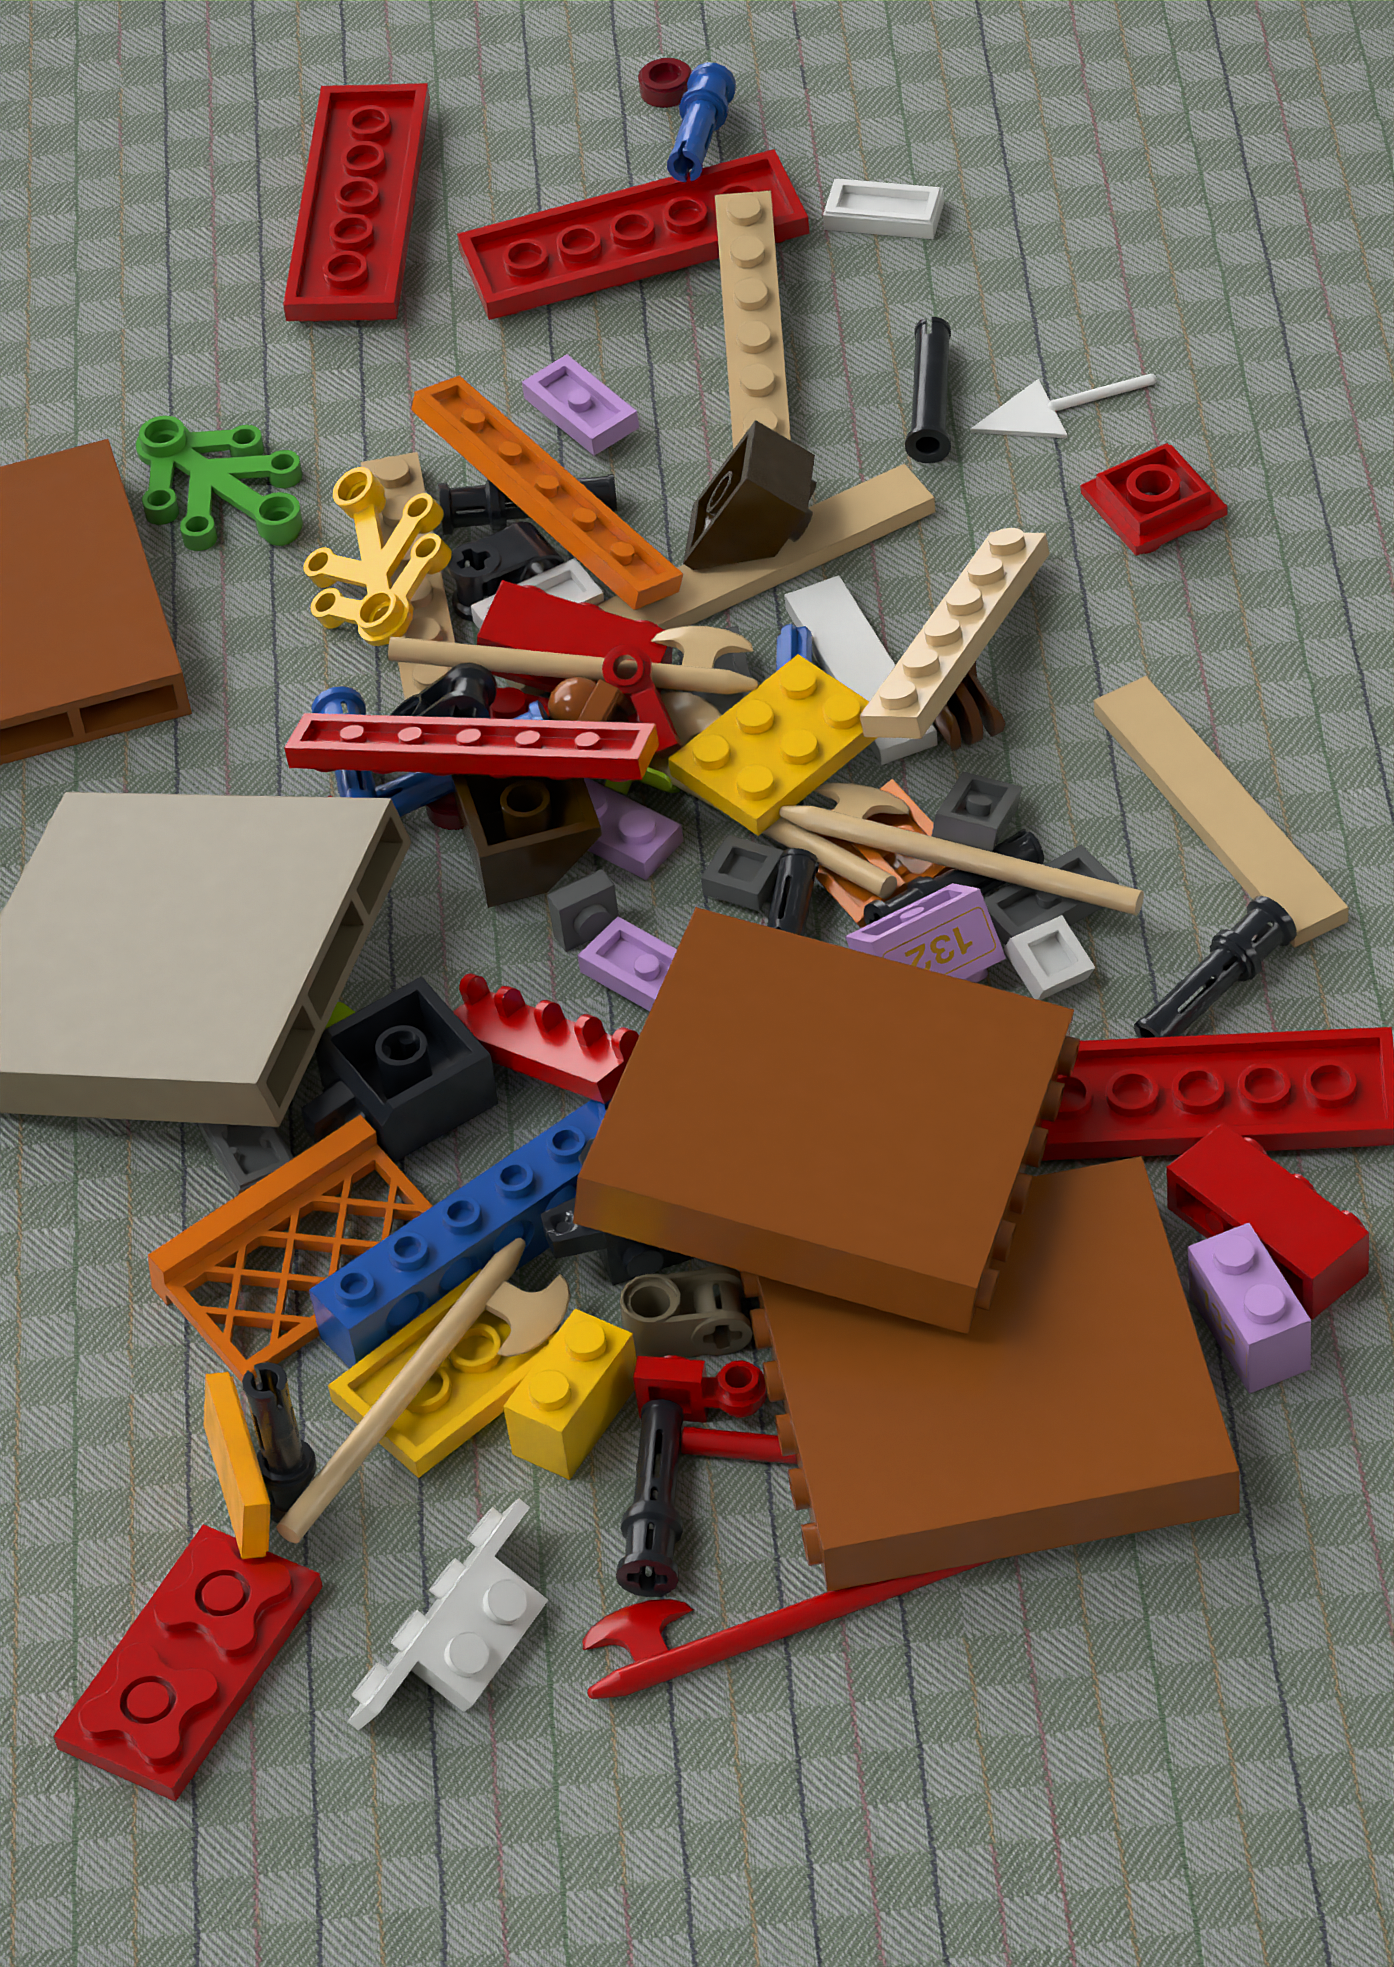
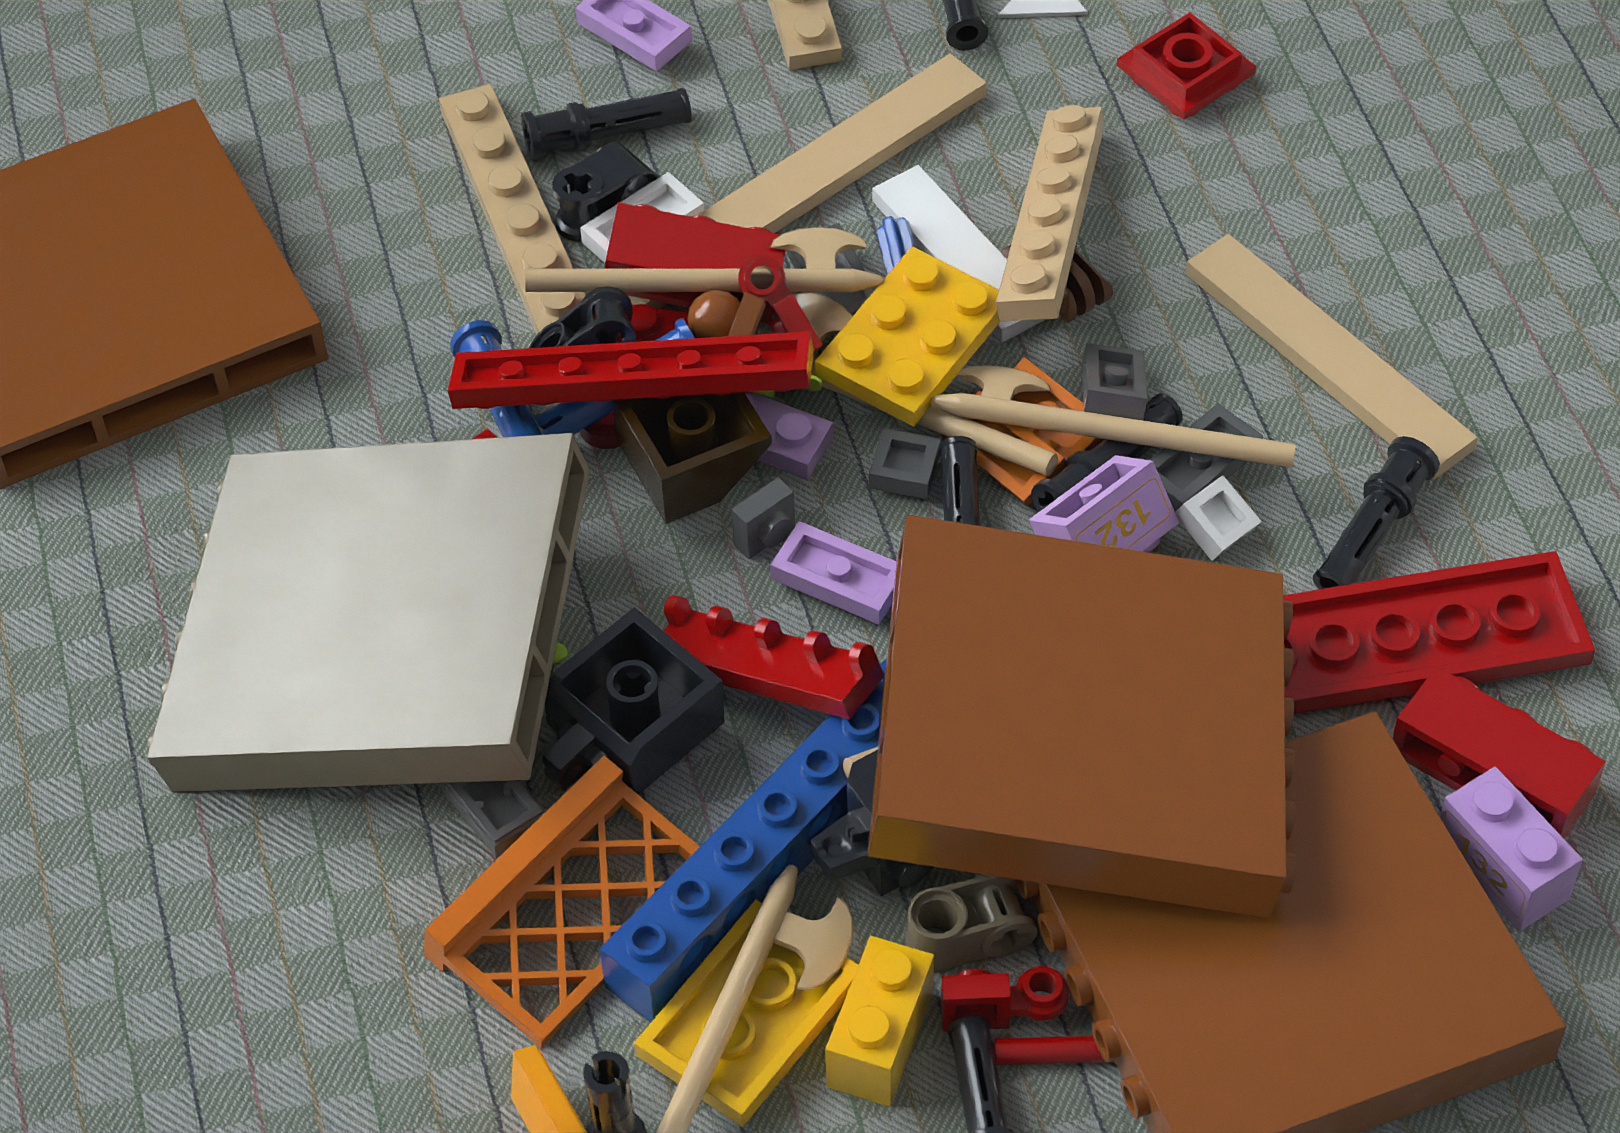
camera: 15 degrees left, 5 degrees up
(169, 444) = (247, 97): bright green plant -> none
(385, 609) = (502, 241): yellow plant -> none
(547, 492) = (632, 112): orange plate -> none
(752, 502) = (824, 104): dark brown slope -> none

